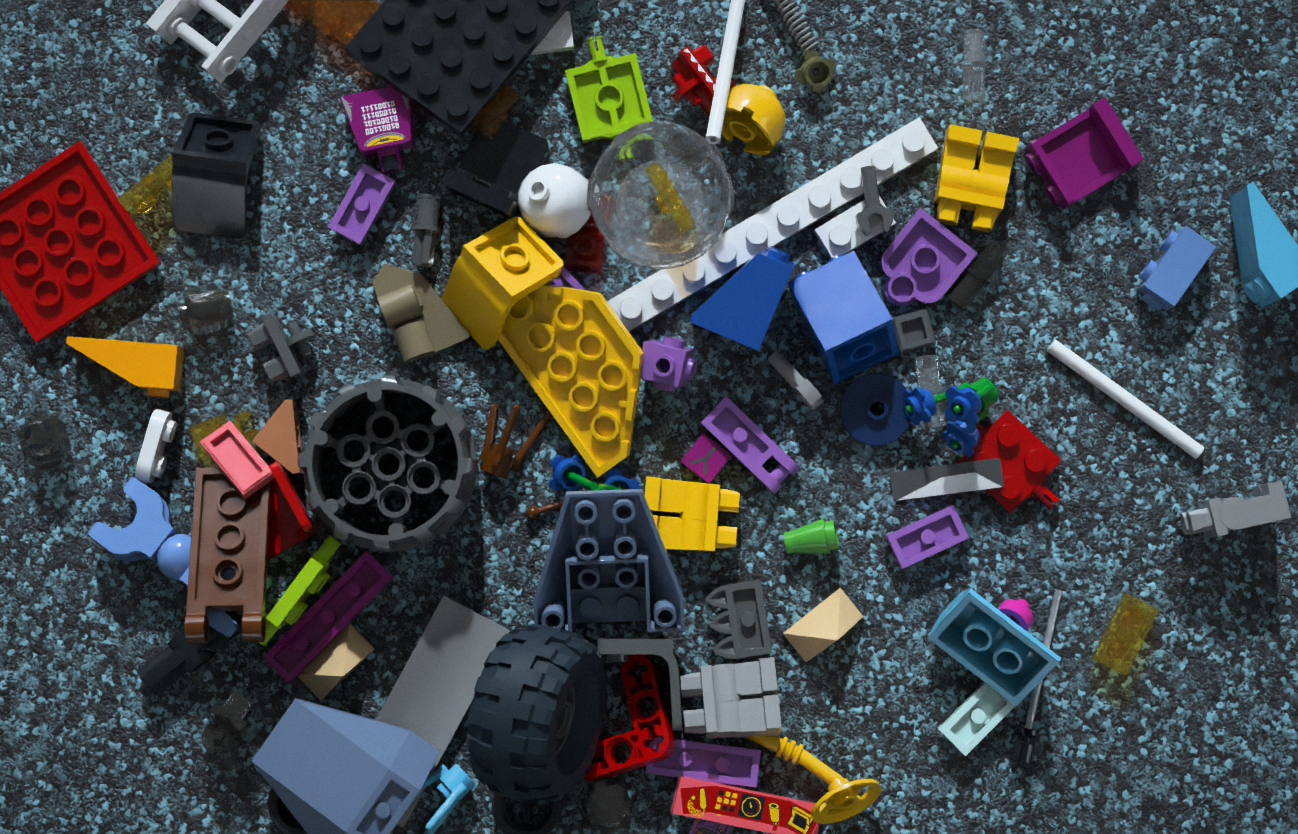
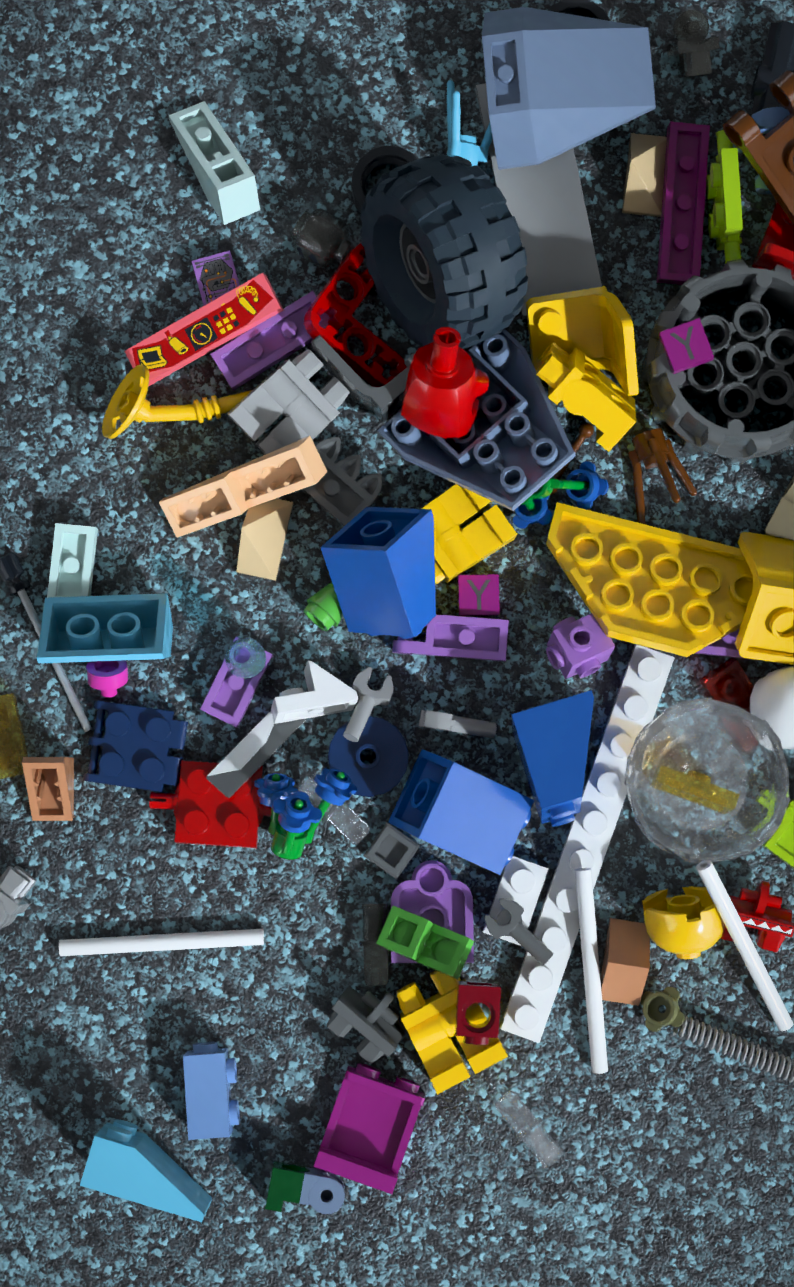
camera: 145 degrees right, 0 degrees up
(426, 502) = (686, 346): none -> magenta tile
(483, 582) = (590, 322): none -> yellow piece
(515, 533) = (587, 393): none -> yellow hips
(618, 615) = (443, 387): none -> red piece
(761, 526) = (384, 571): none -> blue slope
(813, 670) = (244, 487): none -> light nougat slope
(814, 123) = (625, 962): none -> nougat slope
(842, 136) = (591, 970): none -> white piece
(847, 447) = (367, 700): none -> light grey bar
(873, 475) = (324, 697): none -> white slope
(899, 551) = (253, 665): none -> clear light blue cone
(935, 181) = (478, 992): none -> dark red brick
(943, 247) = (425, 942): none -> bright green slope
(1023, 227) = (371, 1019): none -> dark grey hips
(1034, 550) = (136, 747): none -> dark blue plate
(1118, 571) = (50, 787): none -> nougat slope
(1160, 151) = (306, 1187): none -> leg

